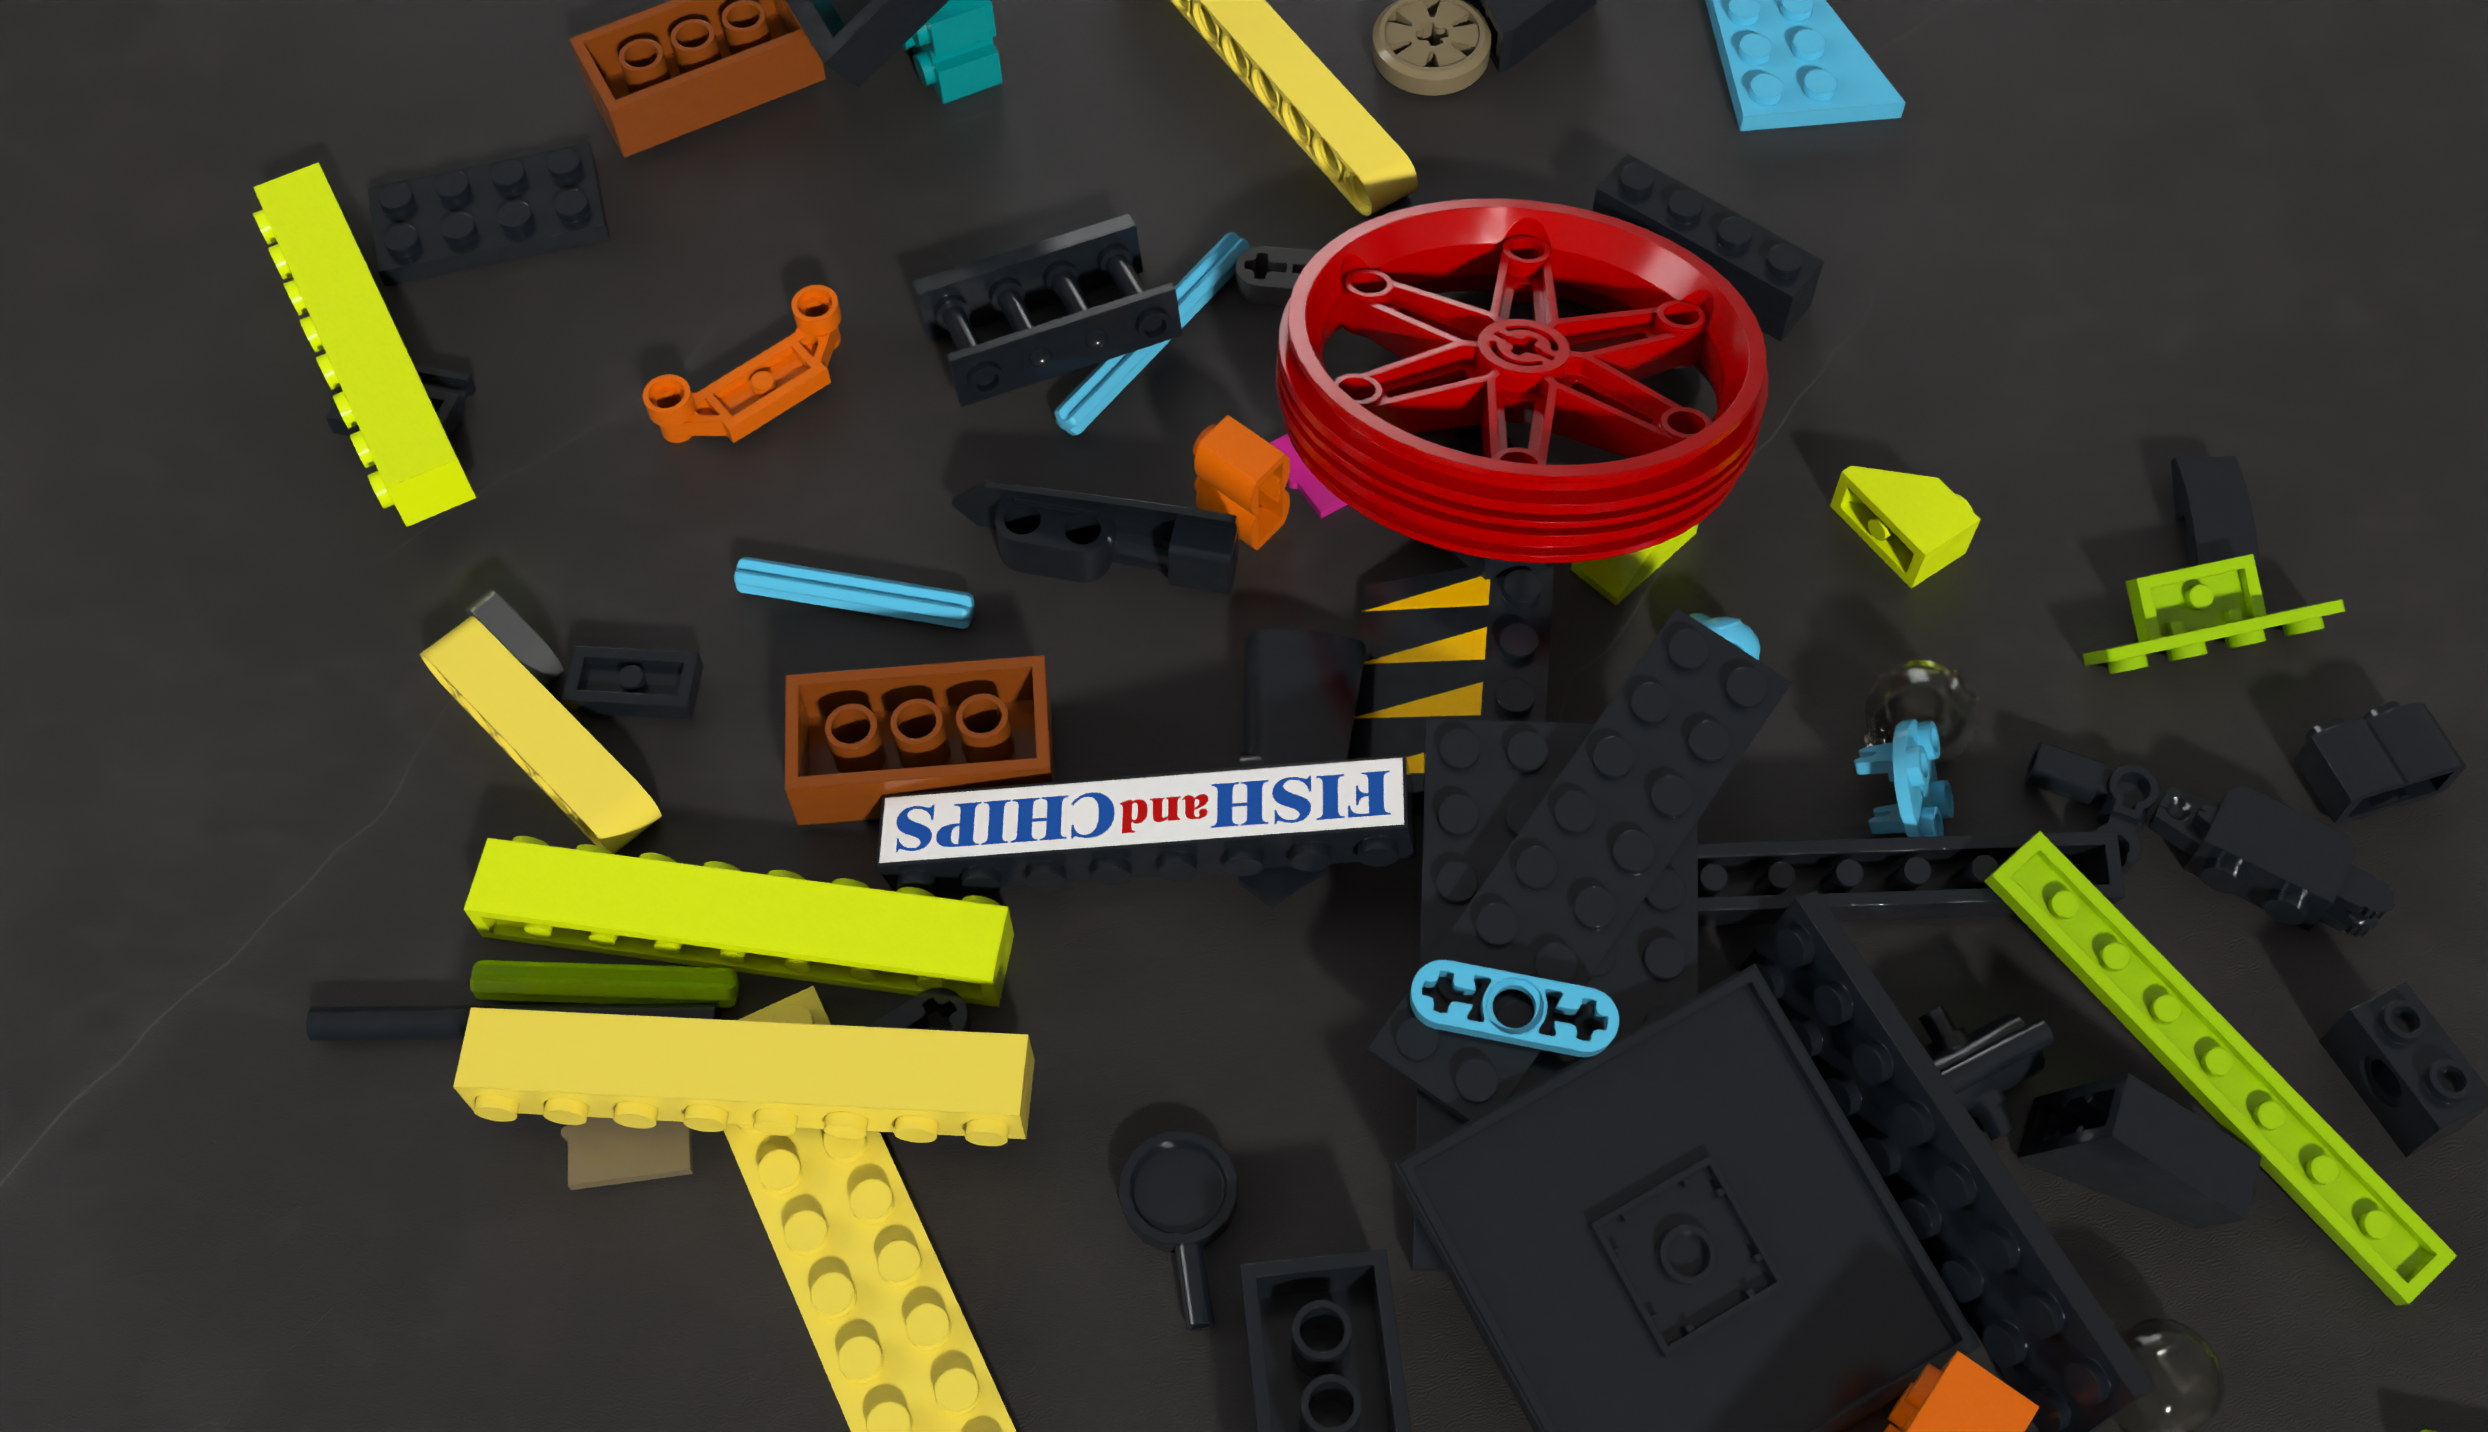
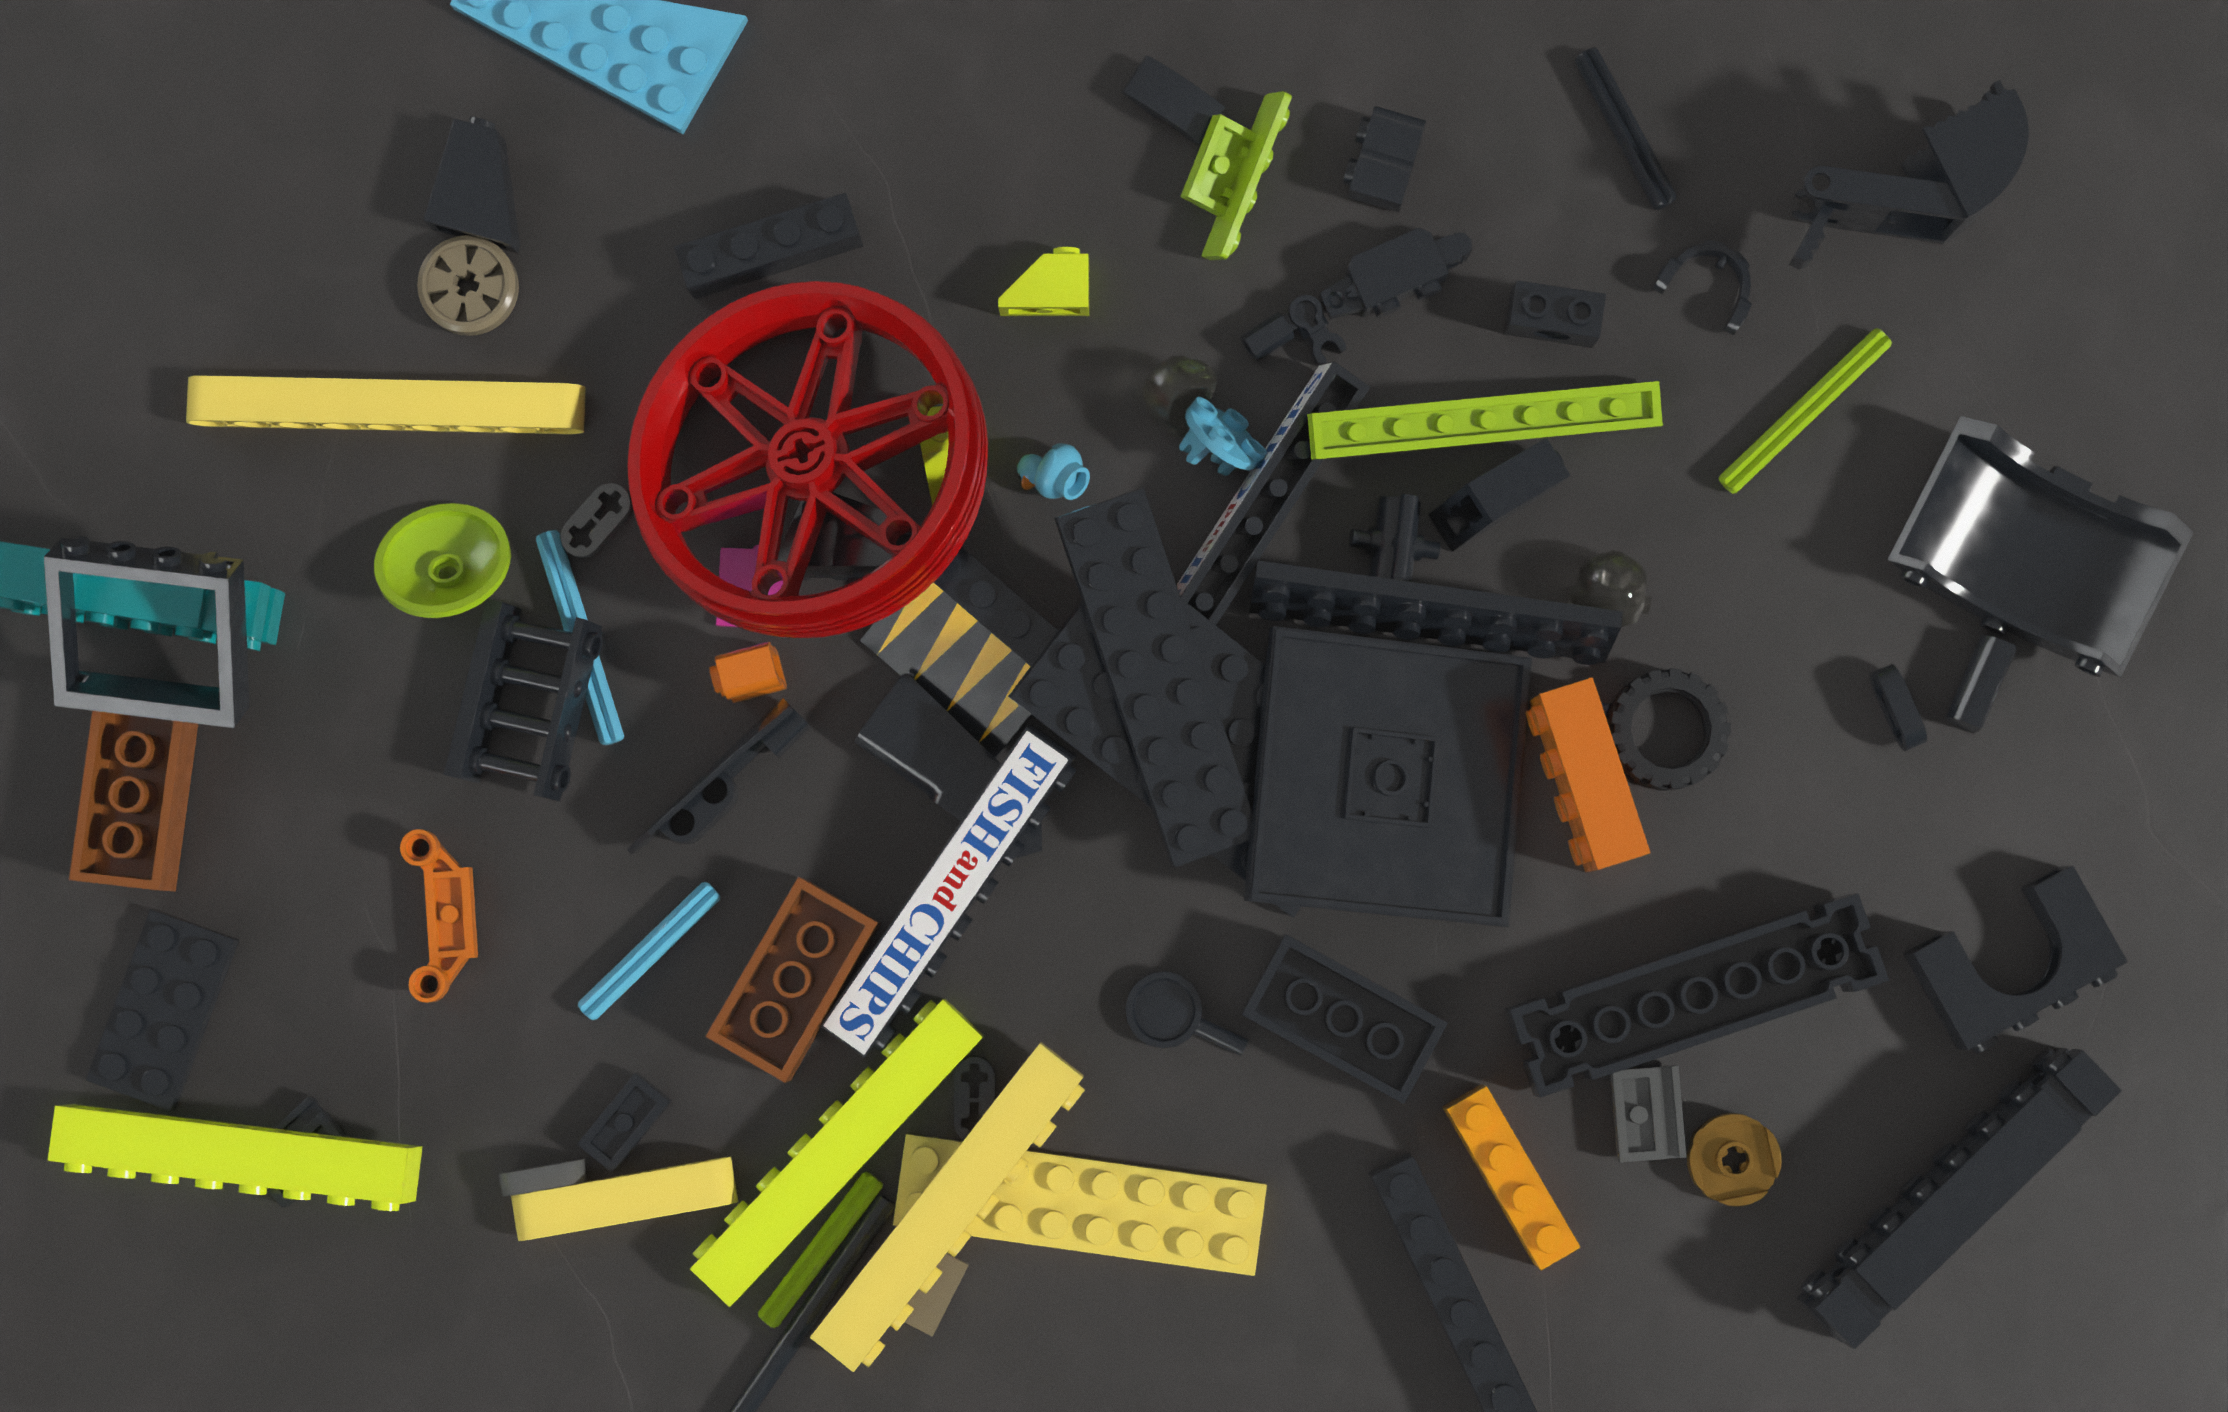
camera: 50 degrees left, 25 degrees up
(1136, 161) = (440, 544): none -> lime dish
(1563, 1034) = (1232, 748): medium azure beam -> none

